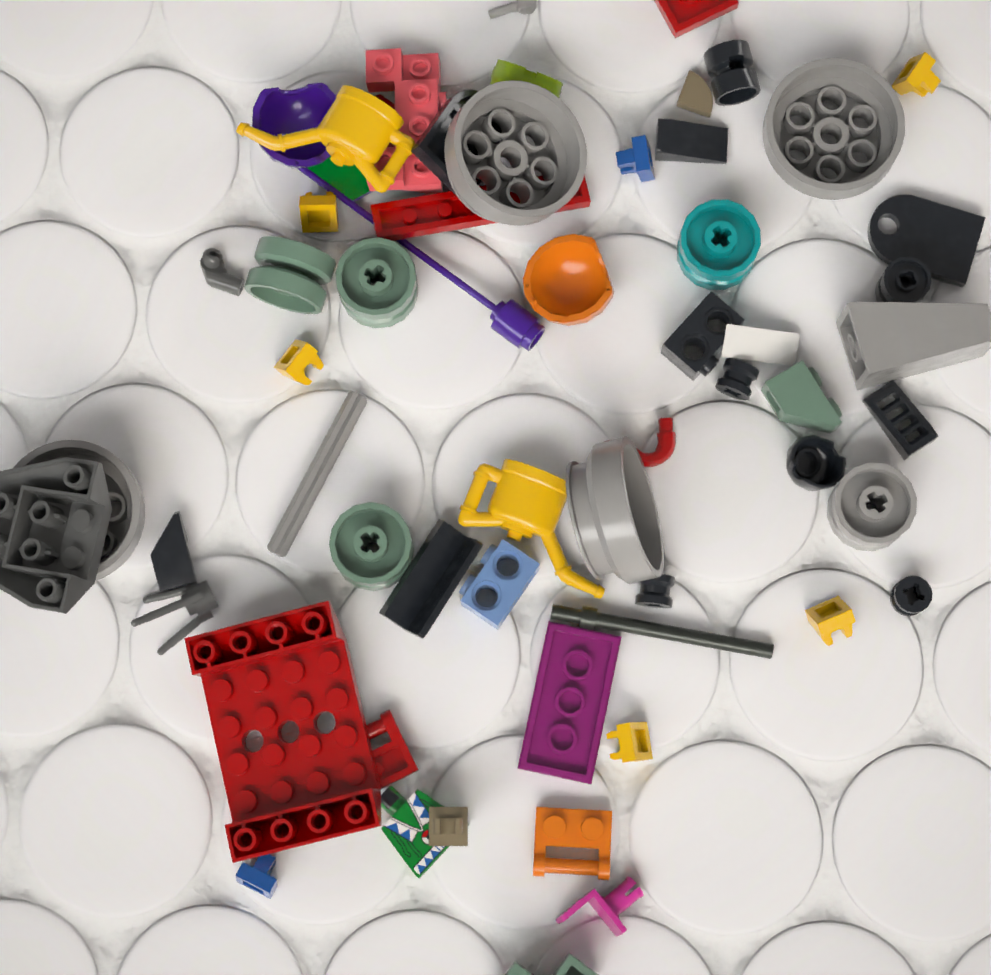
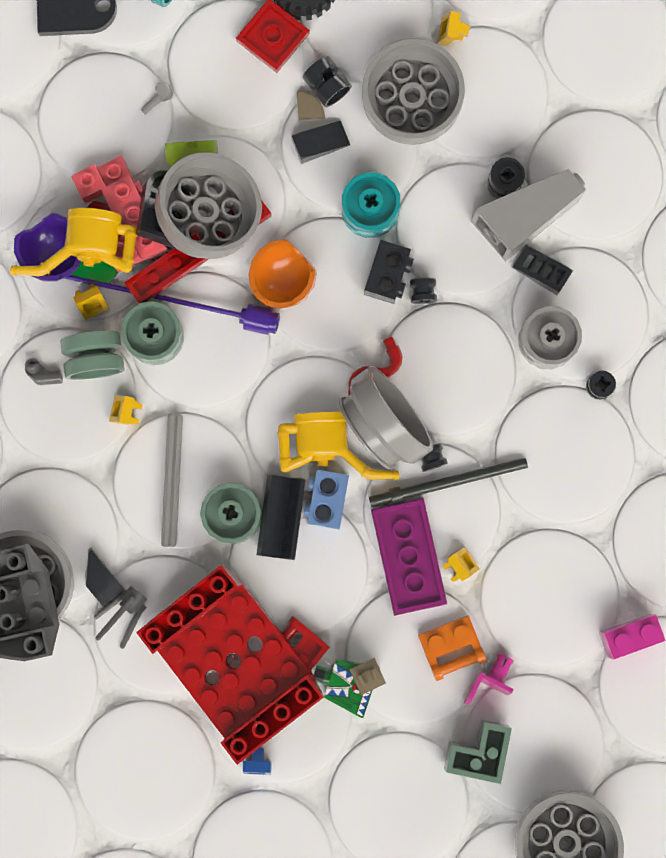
camera: 25 degrees left, 5 degrees up
(637, 159) = (289, 169): blue tile -> none
(760, 345) = (428, 260): white sticker -> none
(800, 401) = (470, 286): sand green slope -> none
(810, 933) = (632, 636): none -> dark pink brick
(814, 463) = (500, 325): black hair -> none
(829, 617) = (554, 423): yellow tile -> none
(930, 232) = (506, 134): black tile -> none

